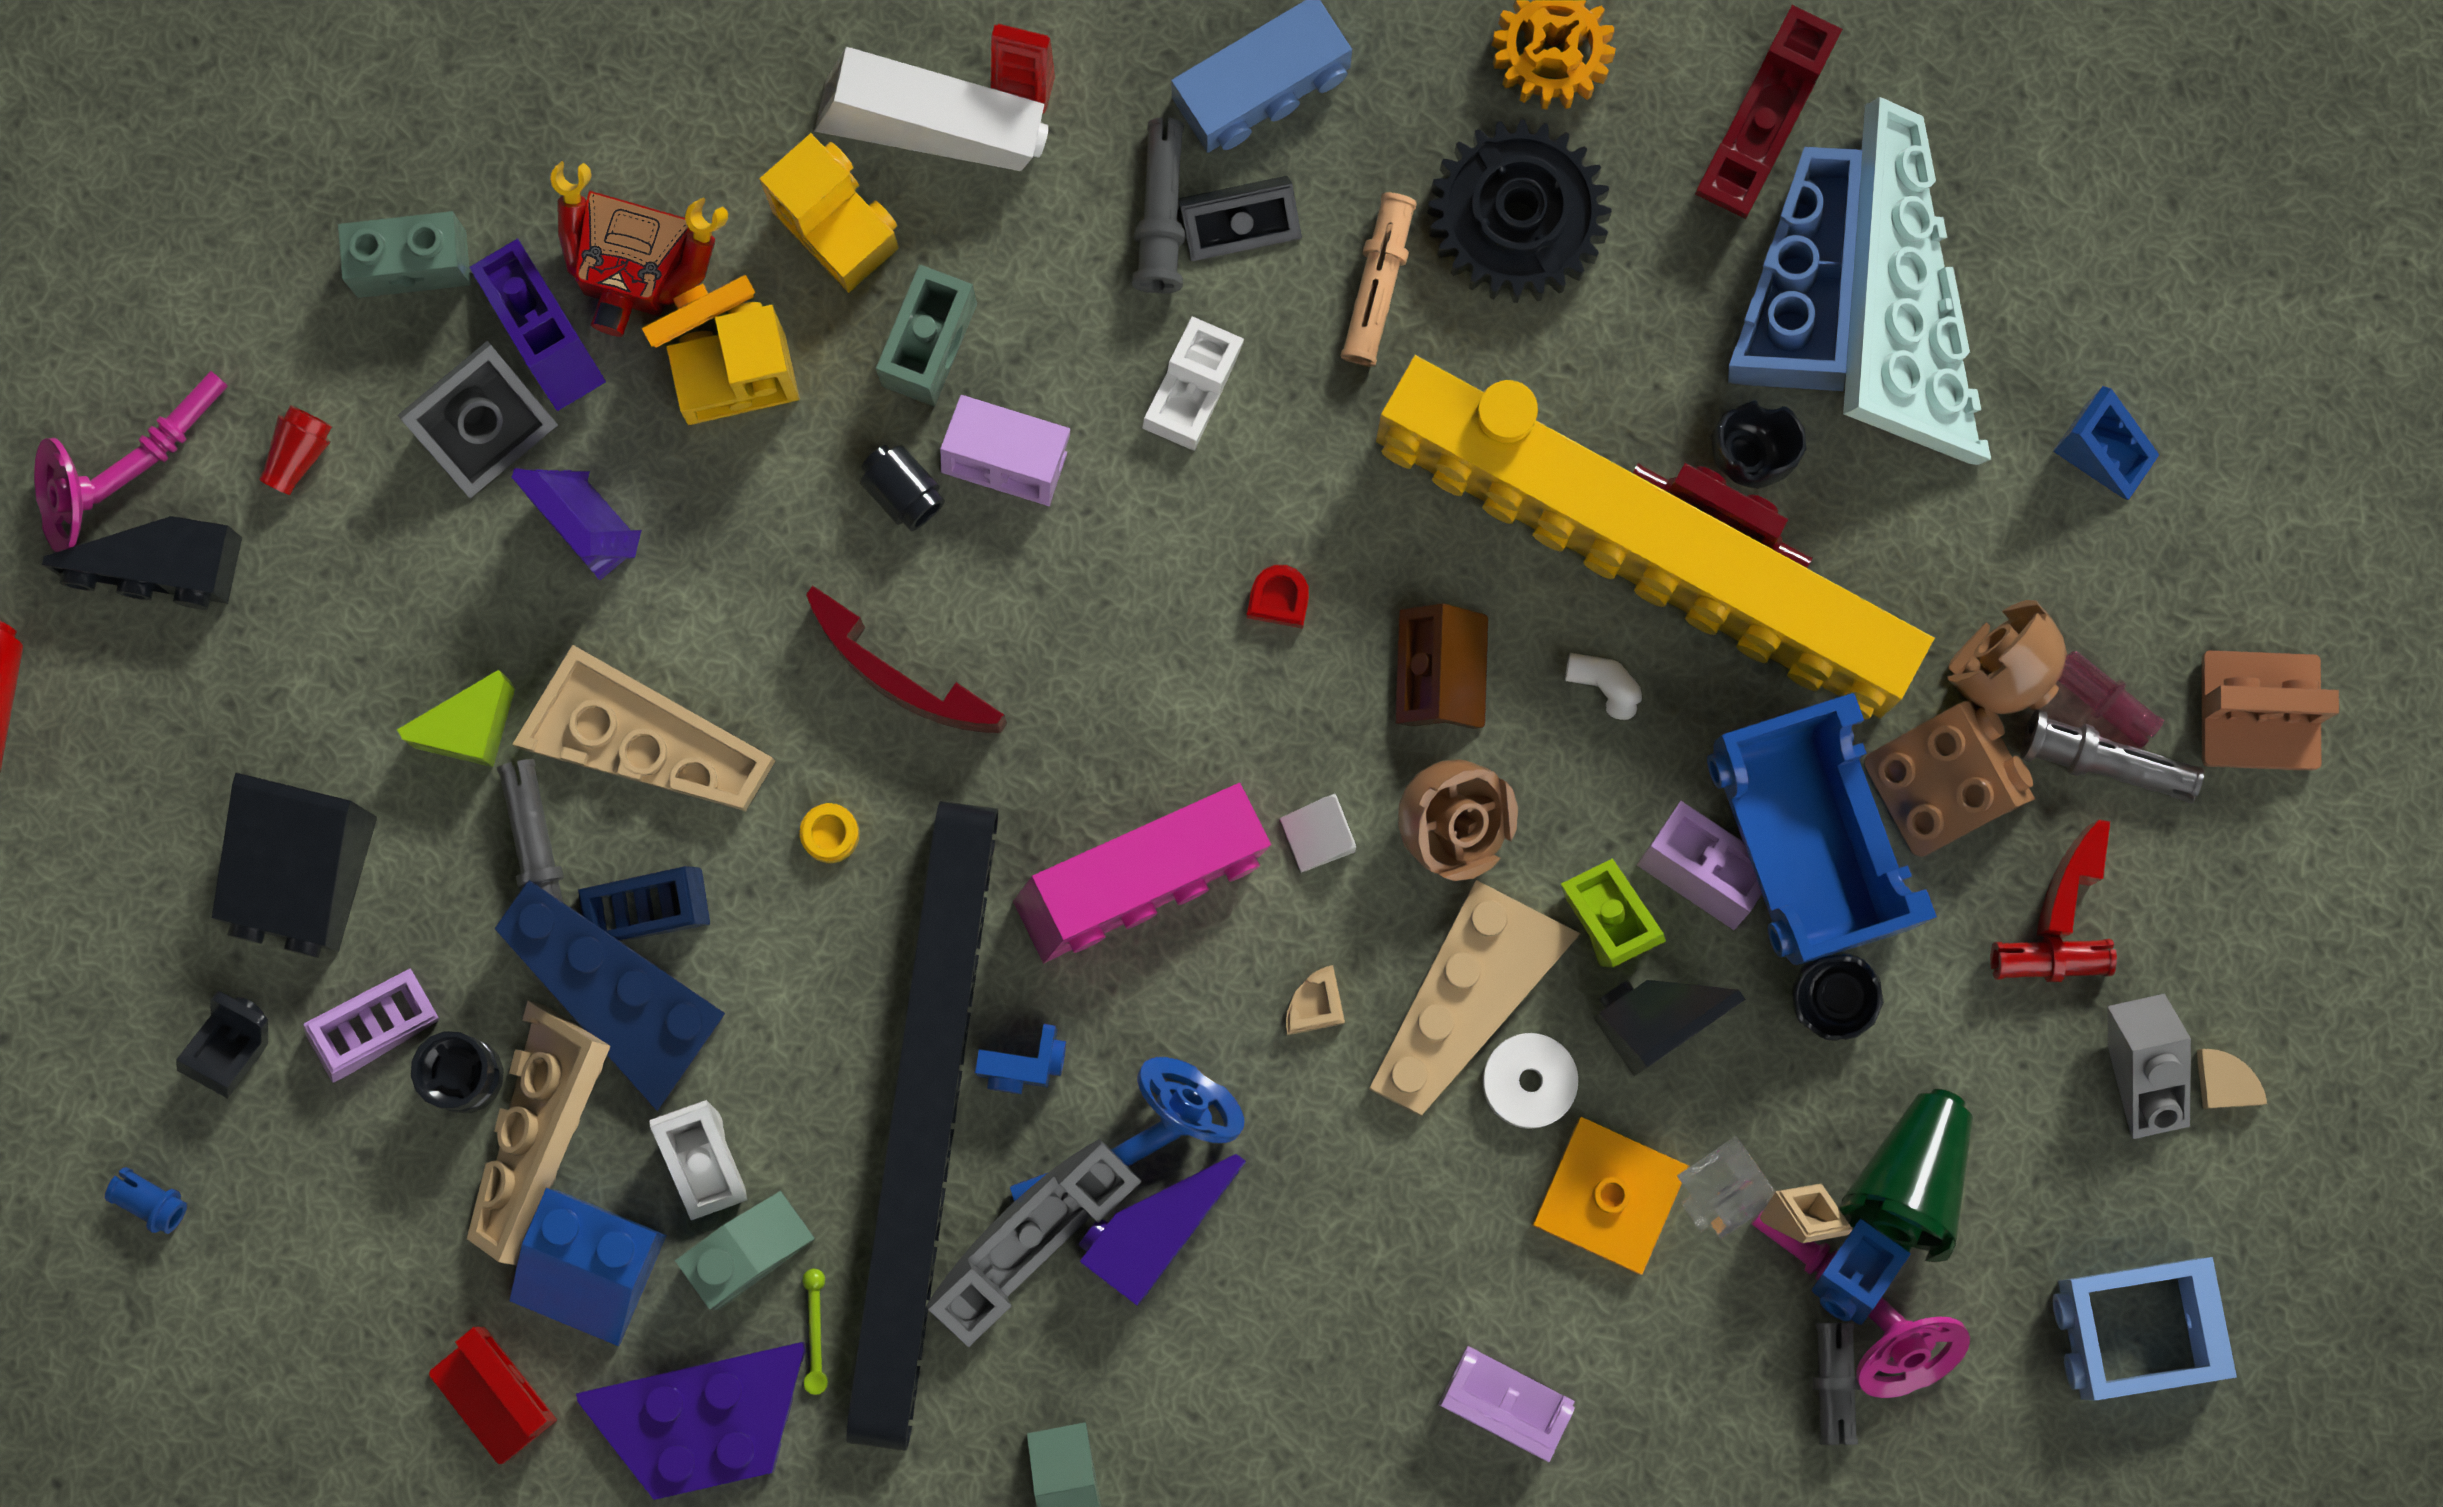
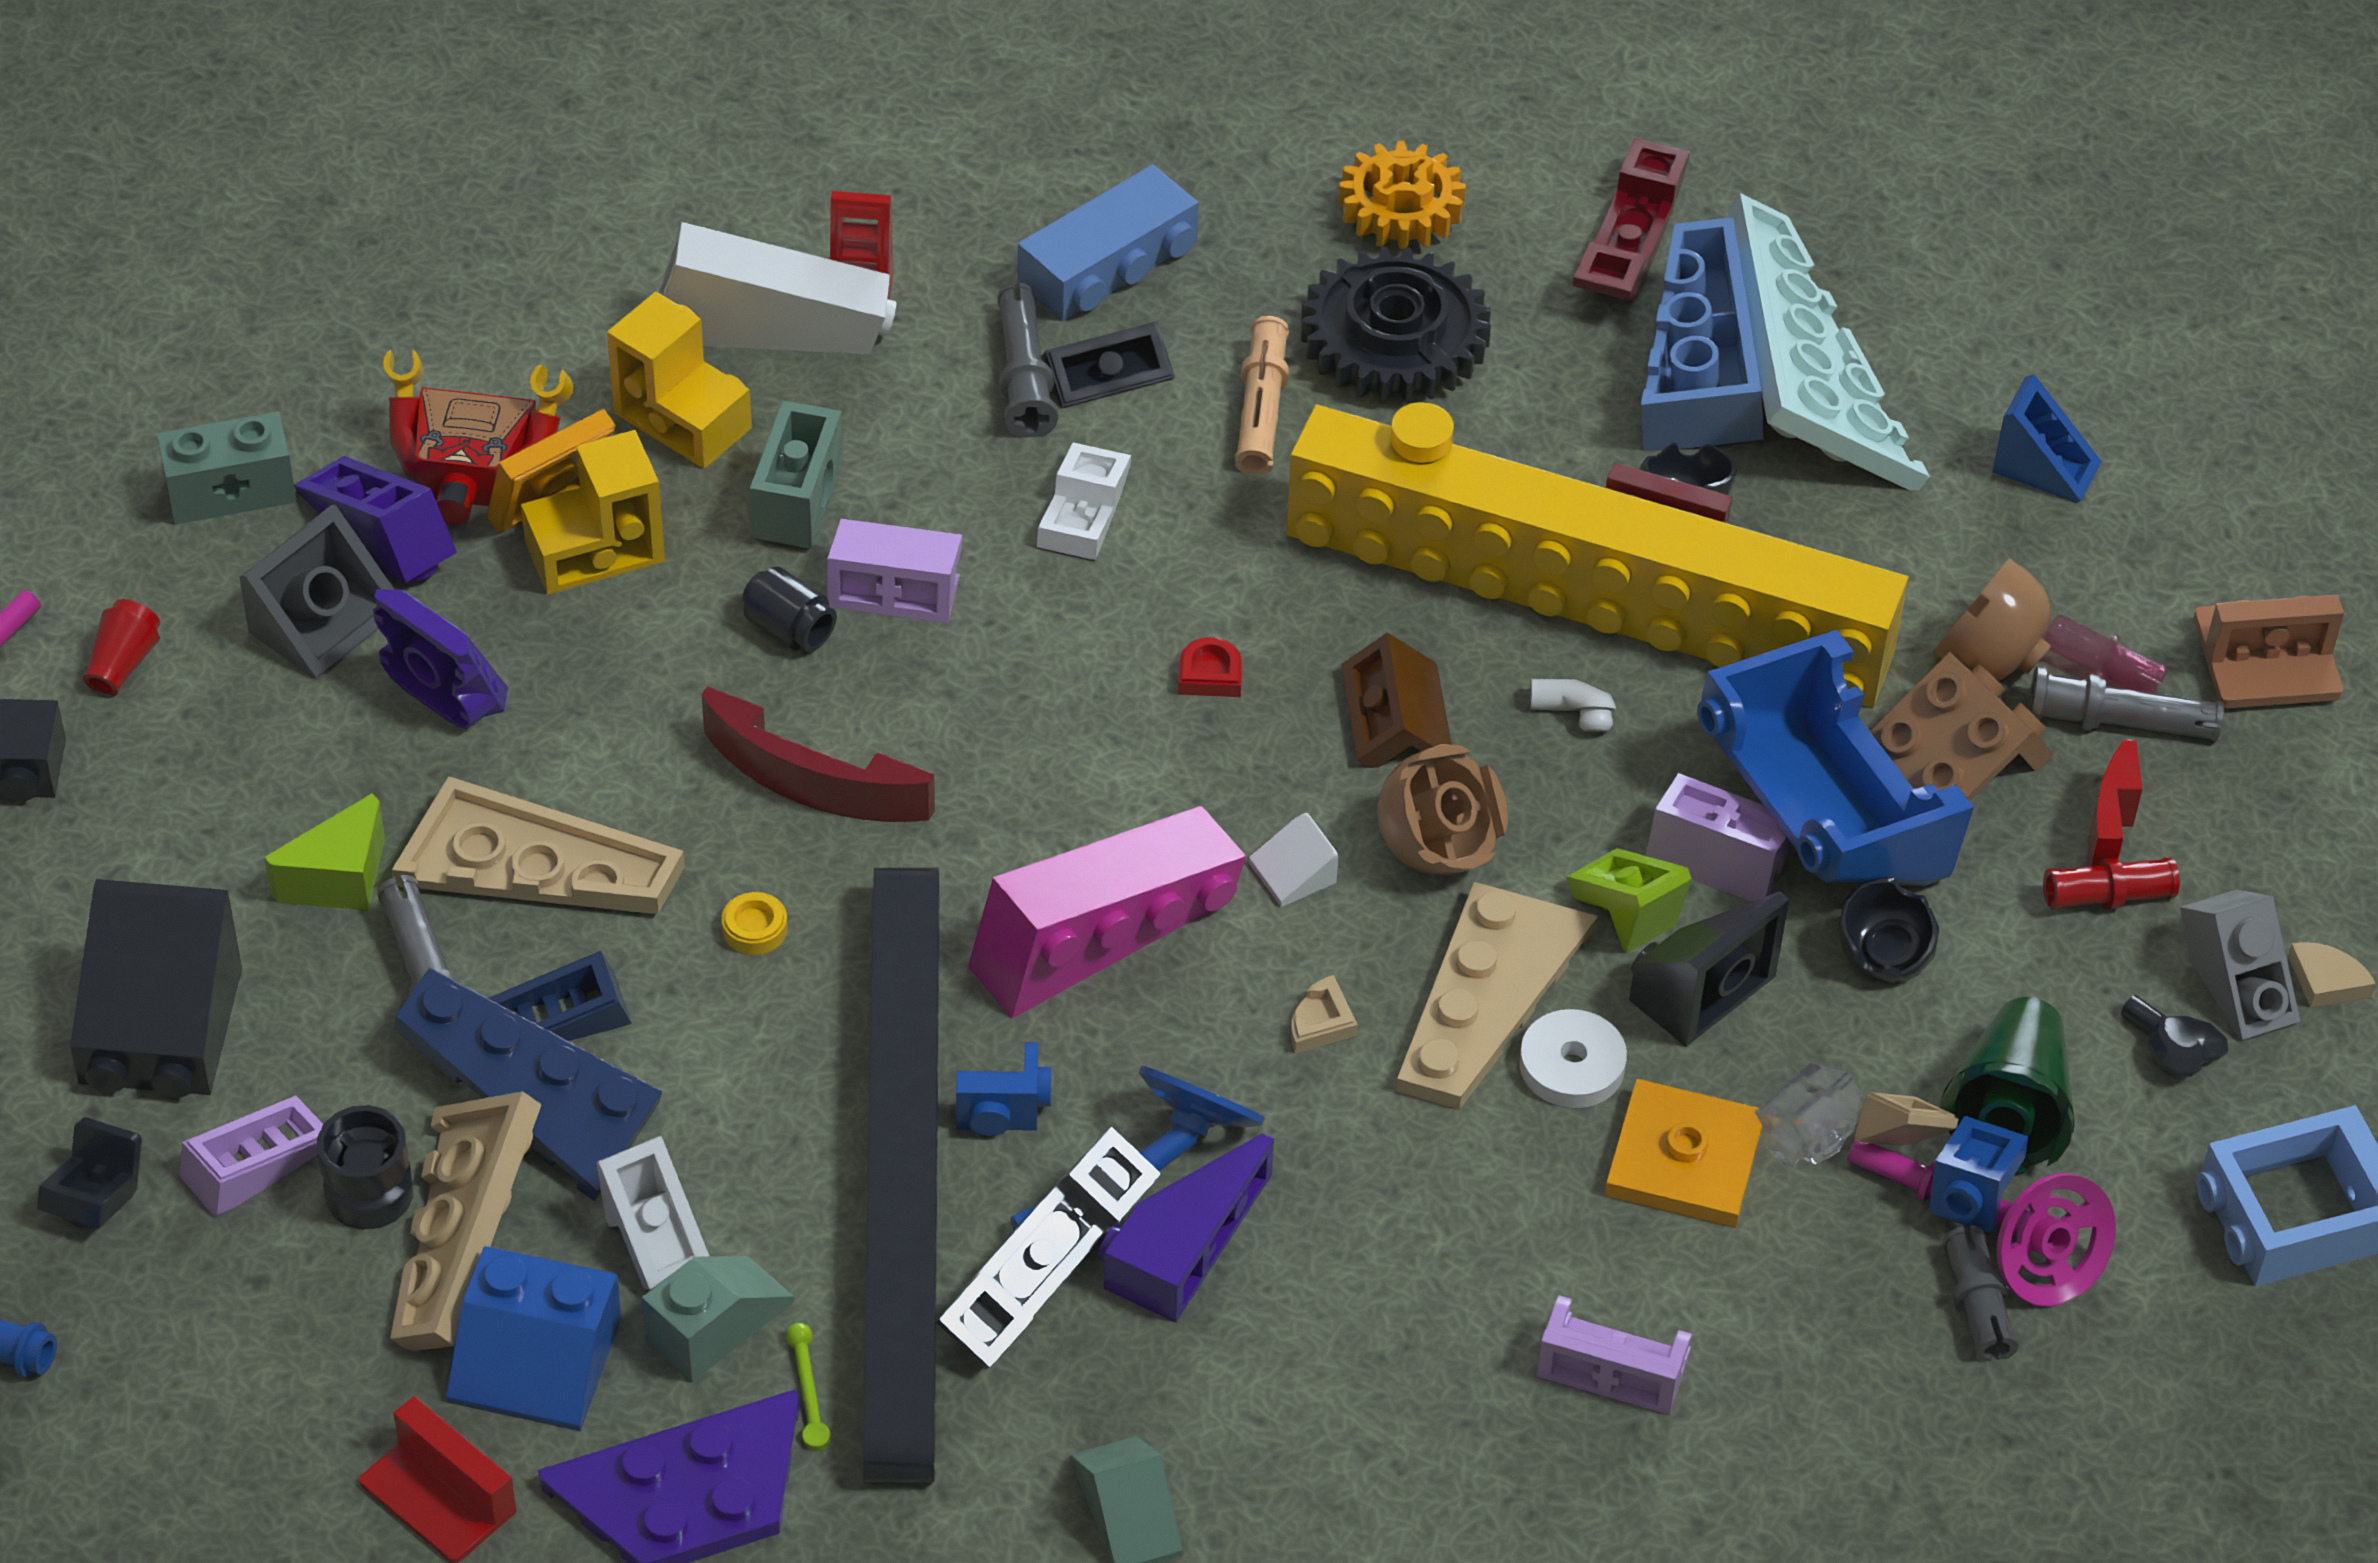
camera: 10 degrees left, 30 degrees down
(2073, 1137) = (2176, 1042): none -> black rock

